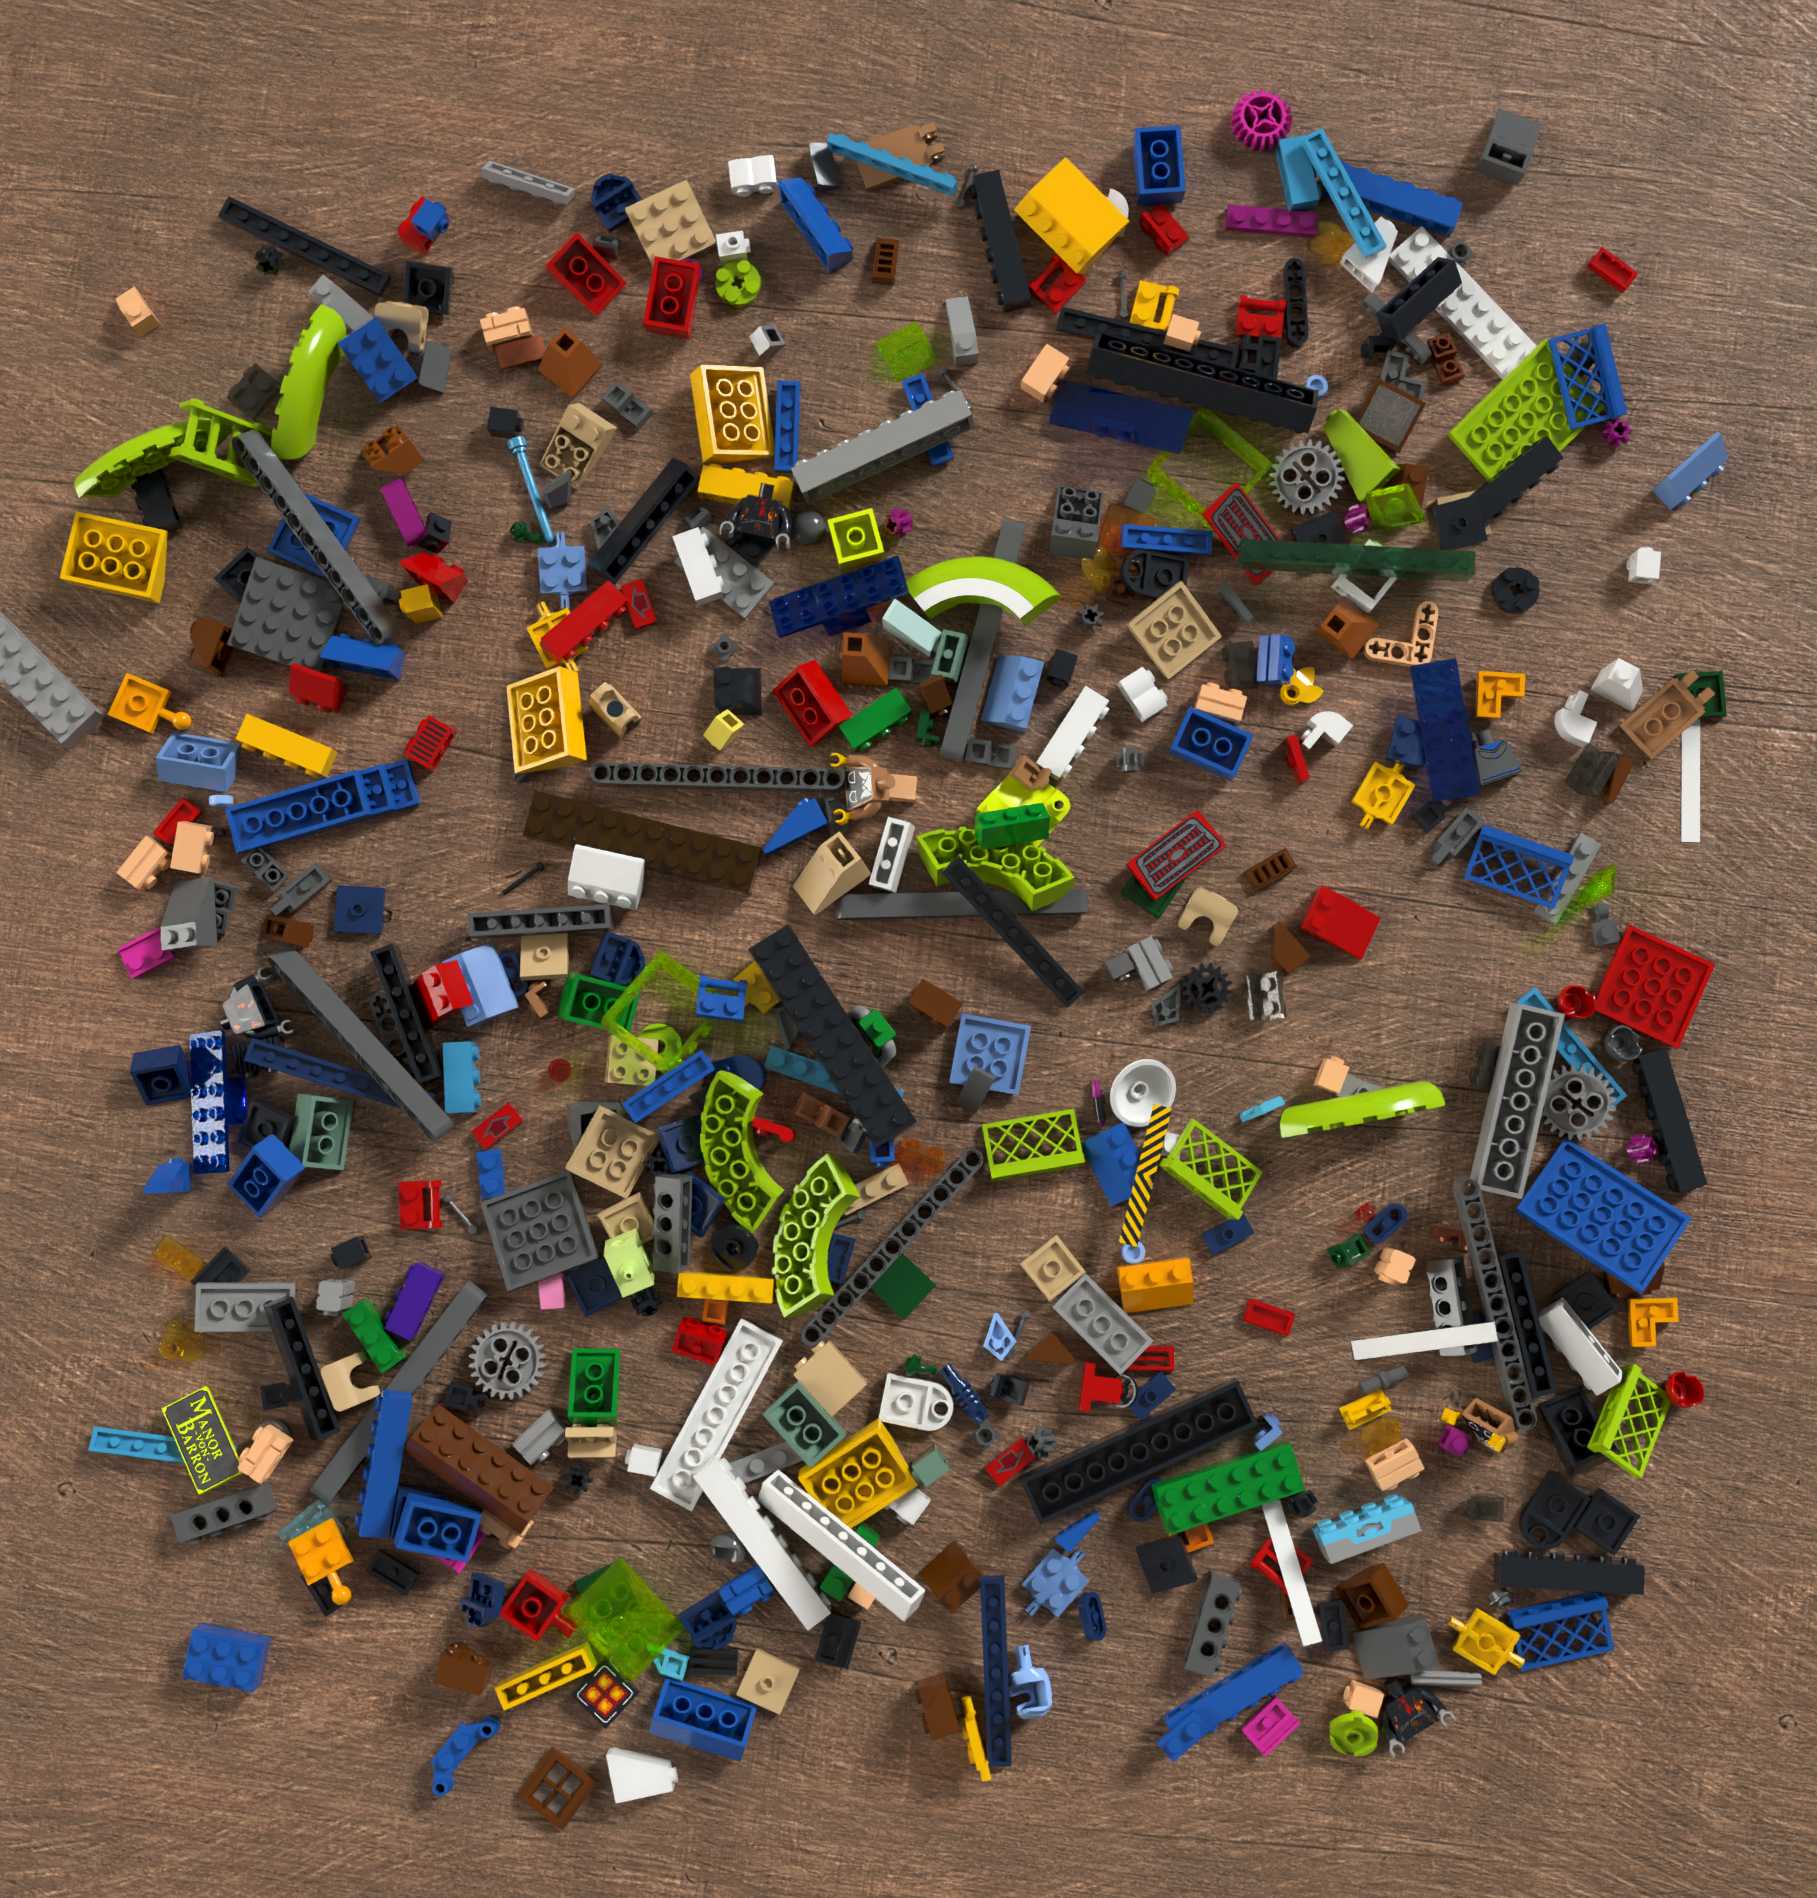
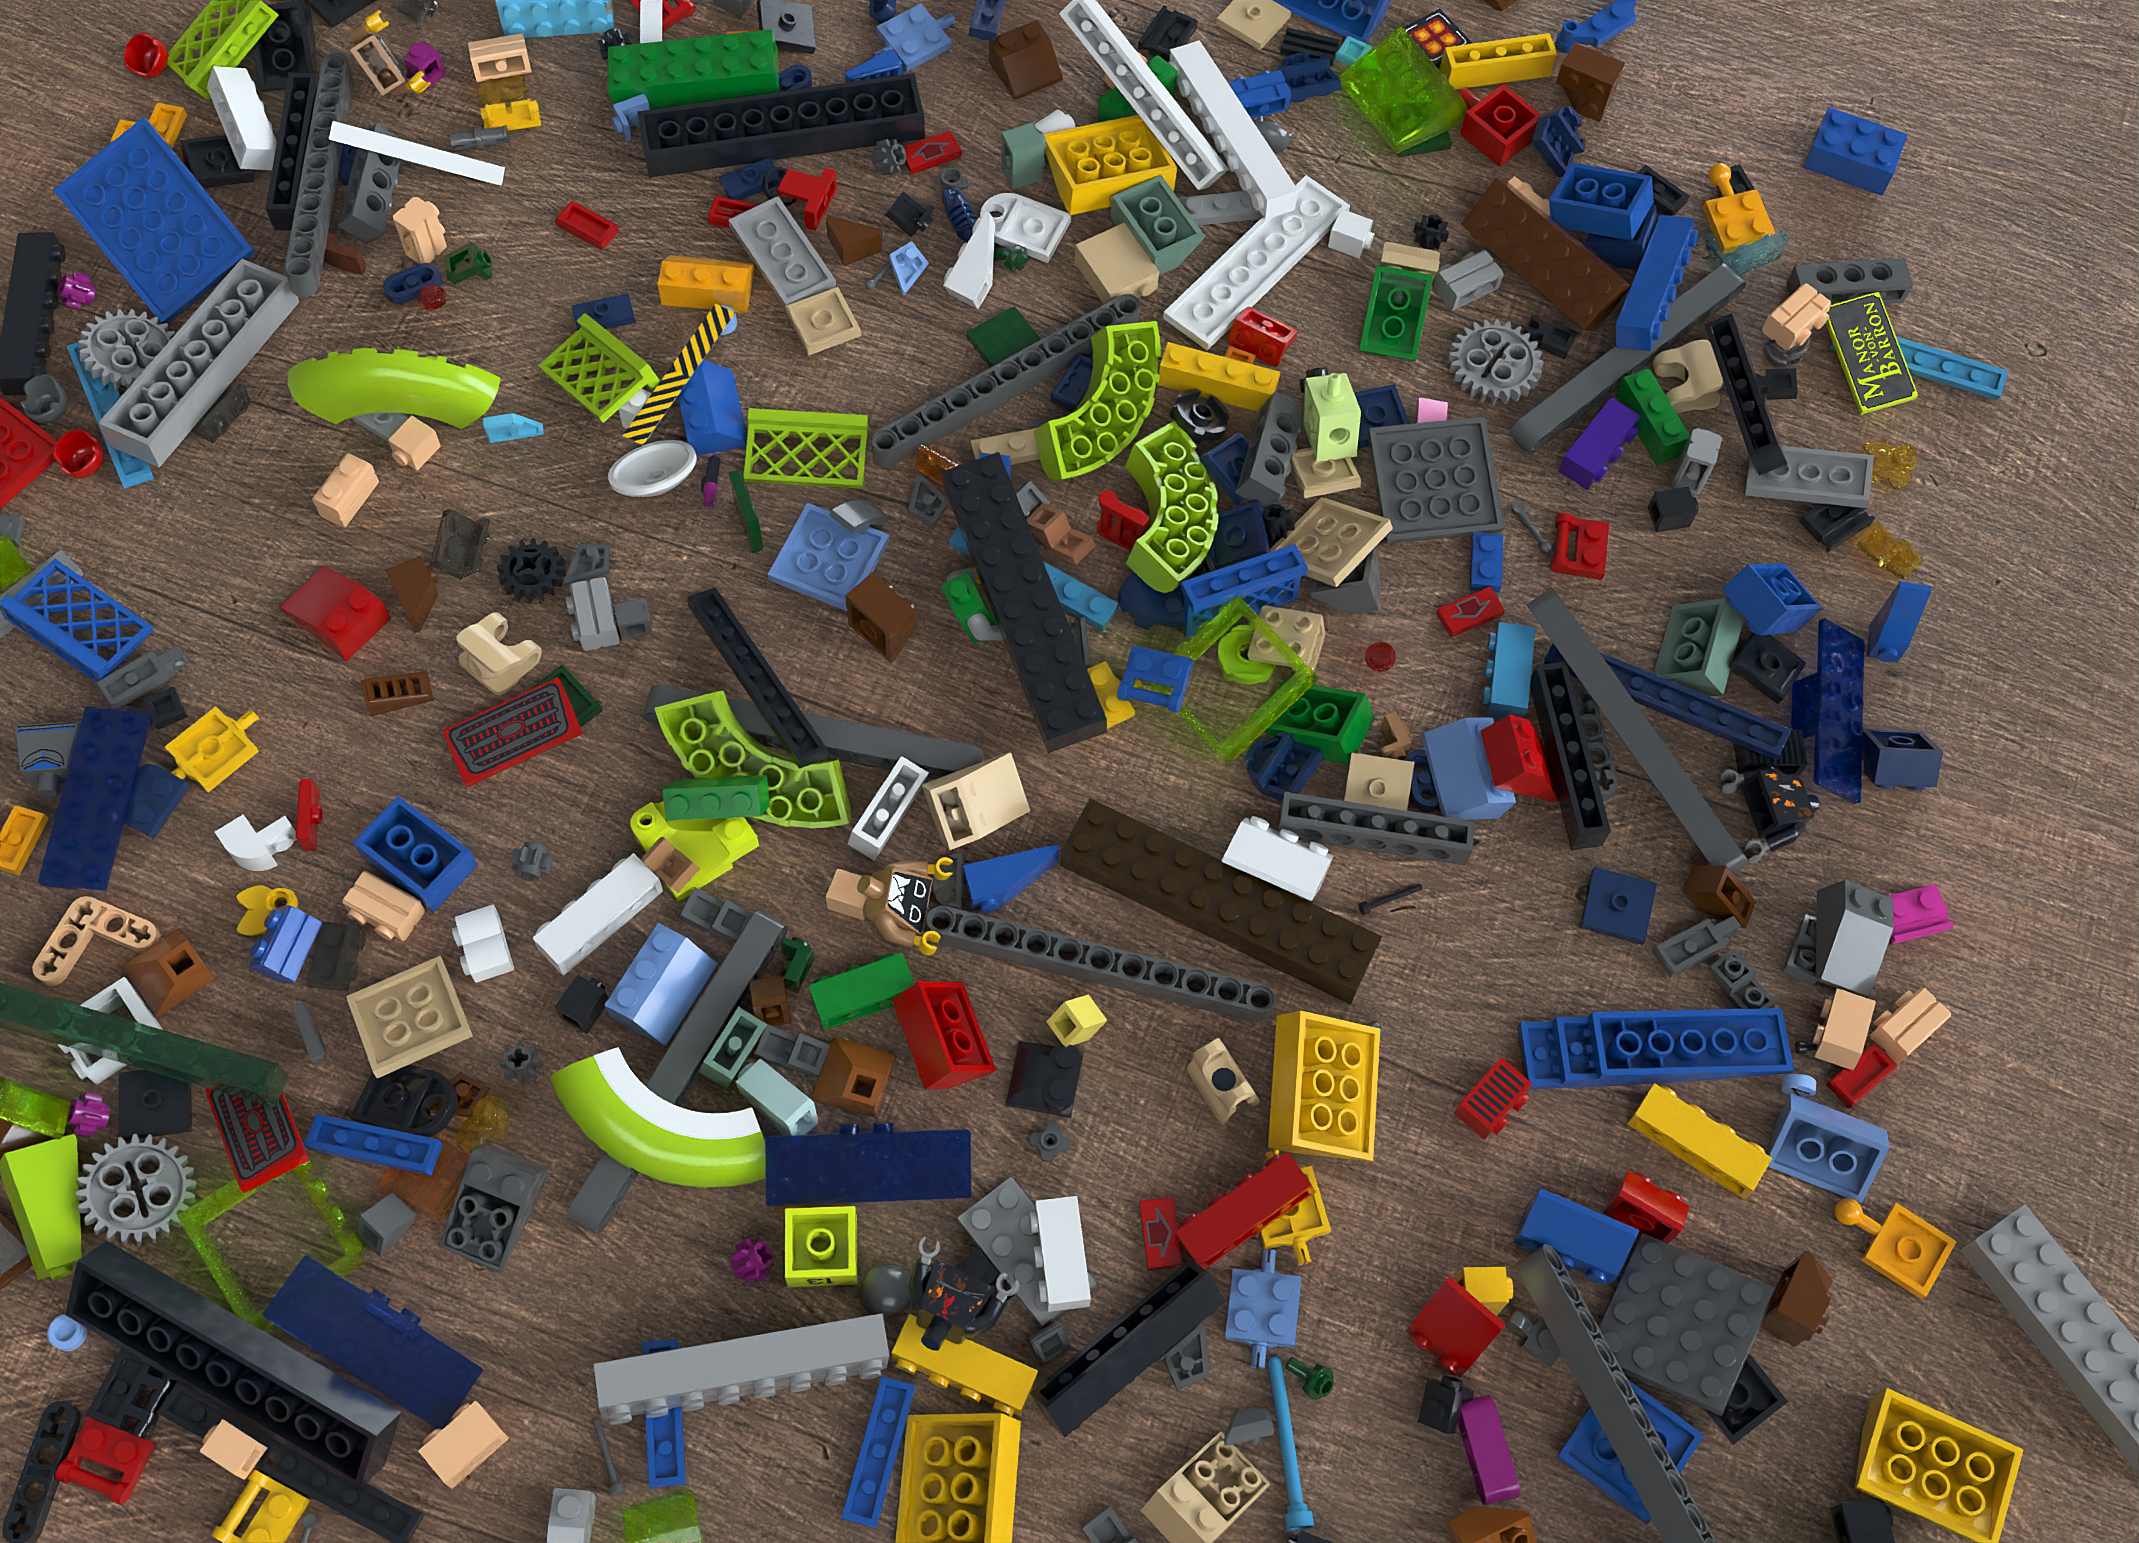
camera: 170 degrees left, 20 degrees down
(929, 1122) = (926, 501): none -> dark grey piece
(942, 1341) = (973, 271): none -> white slope
(1060, 1070) = (746, 511): none -> dark green tile
(1366, 1021) = (345, 490): none -> light nougat brick

